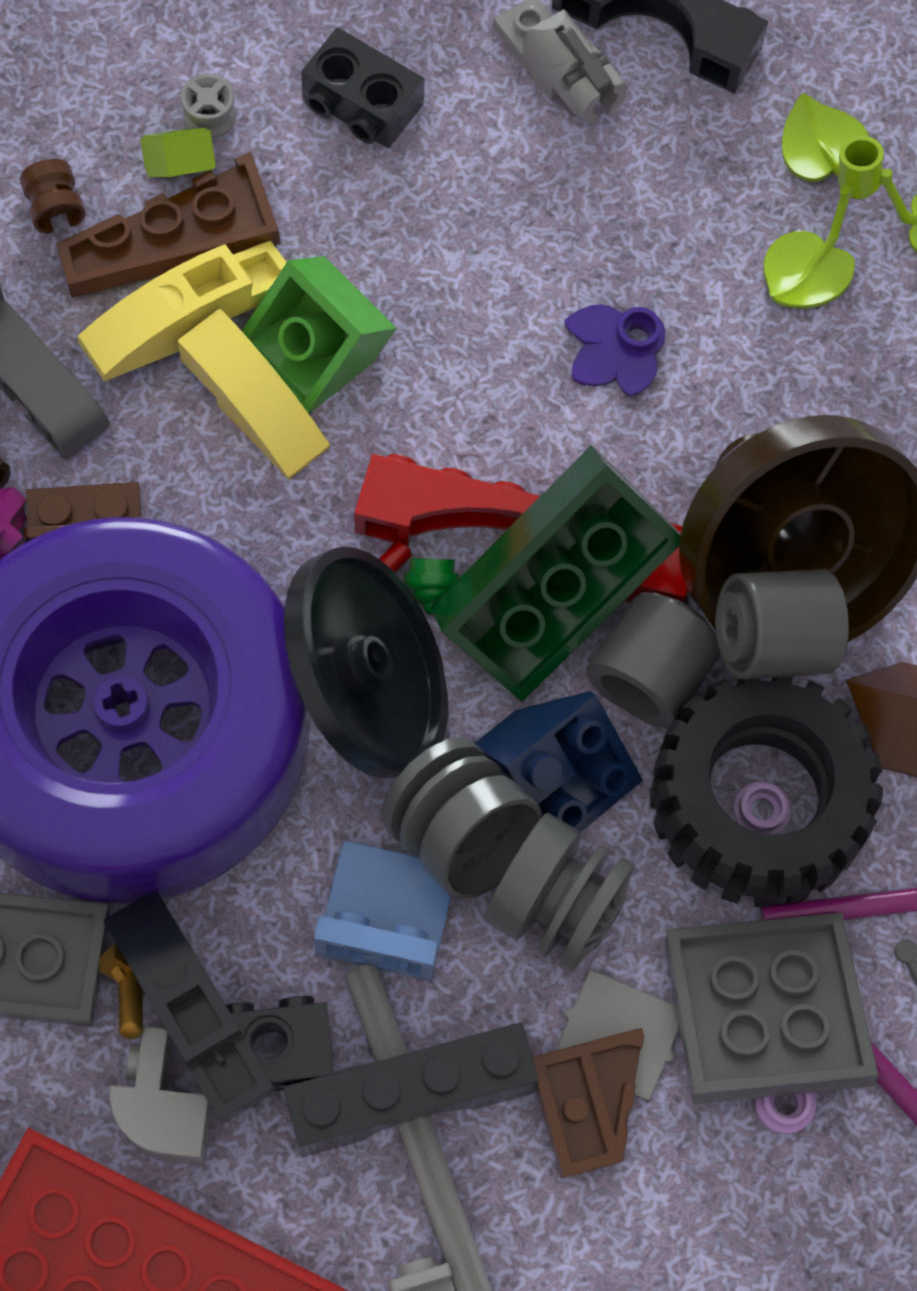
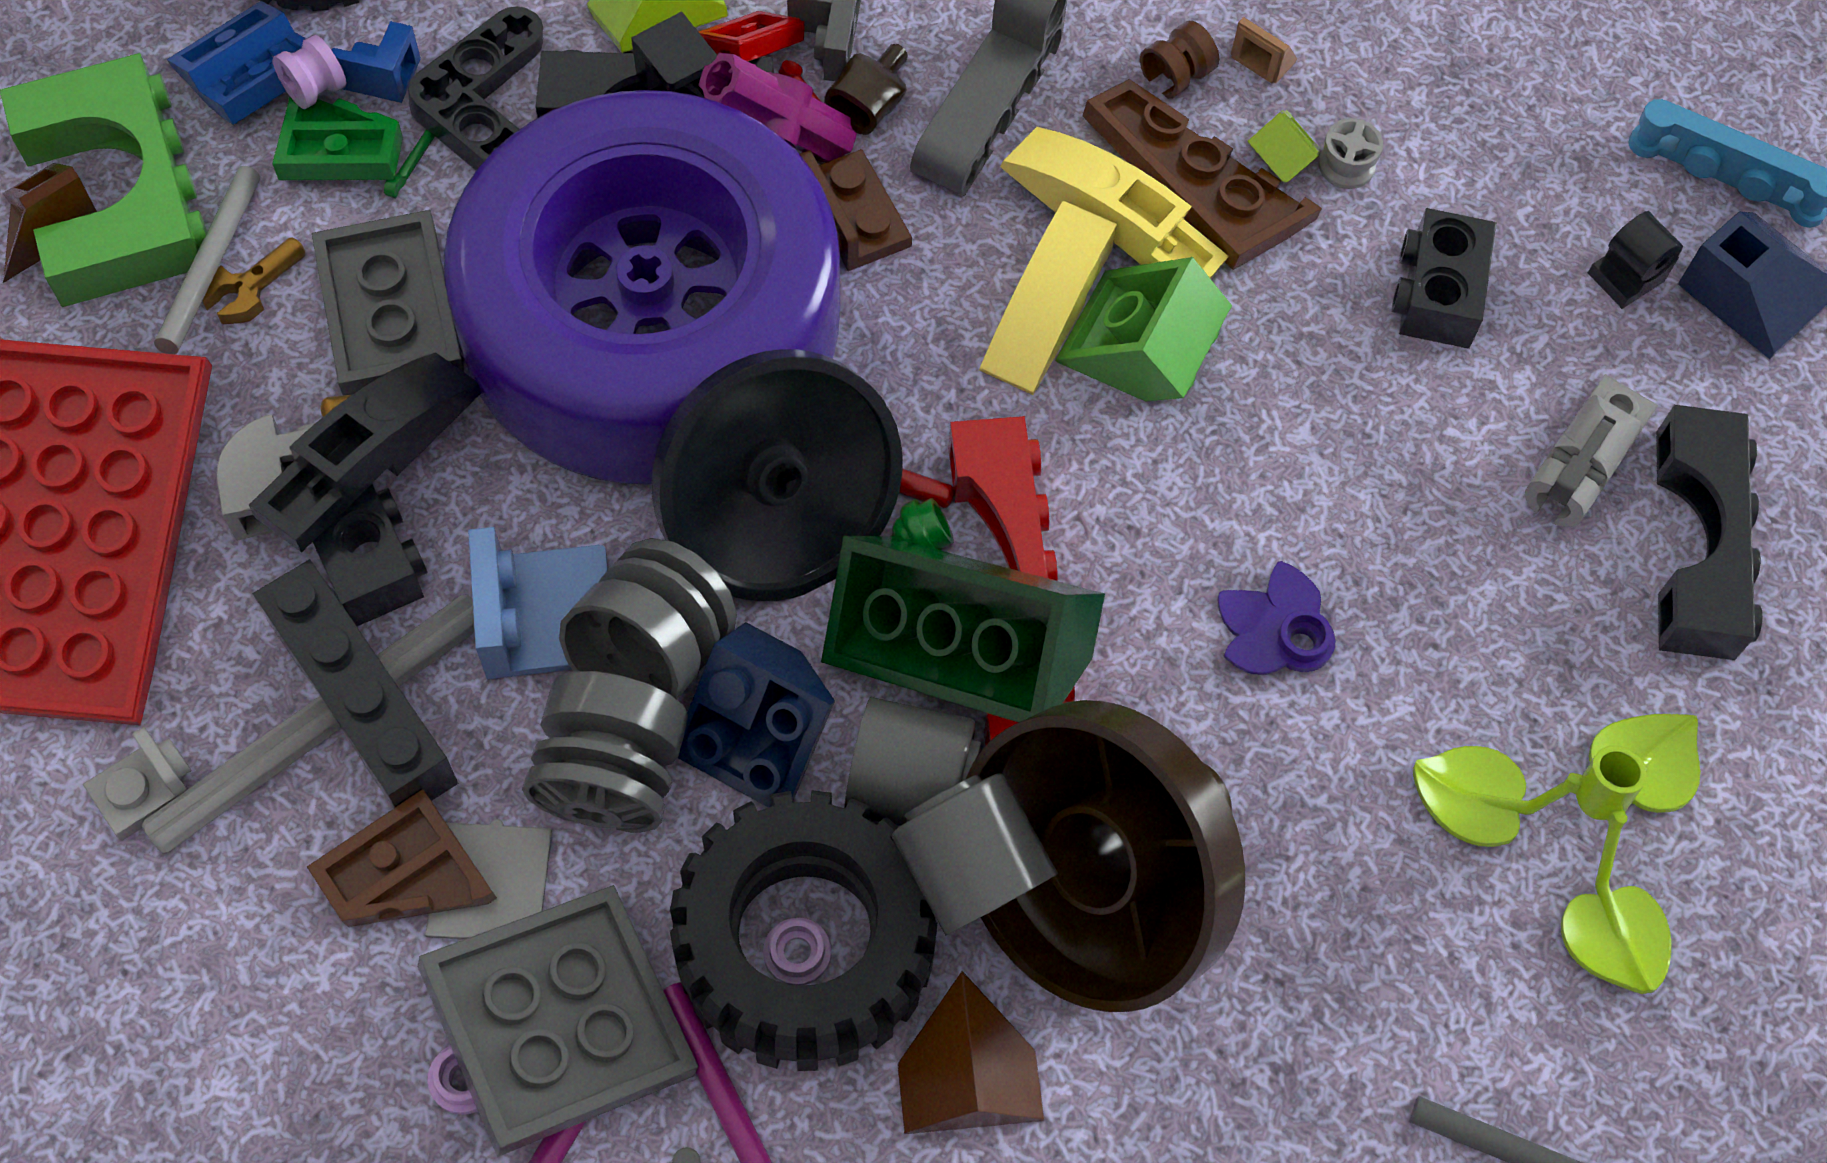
camera: 70 degrees right, 5 degrees down
(72, 130) = (1261, 51): none -> medium nougat slope

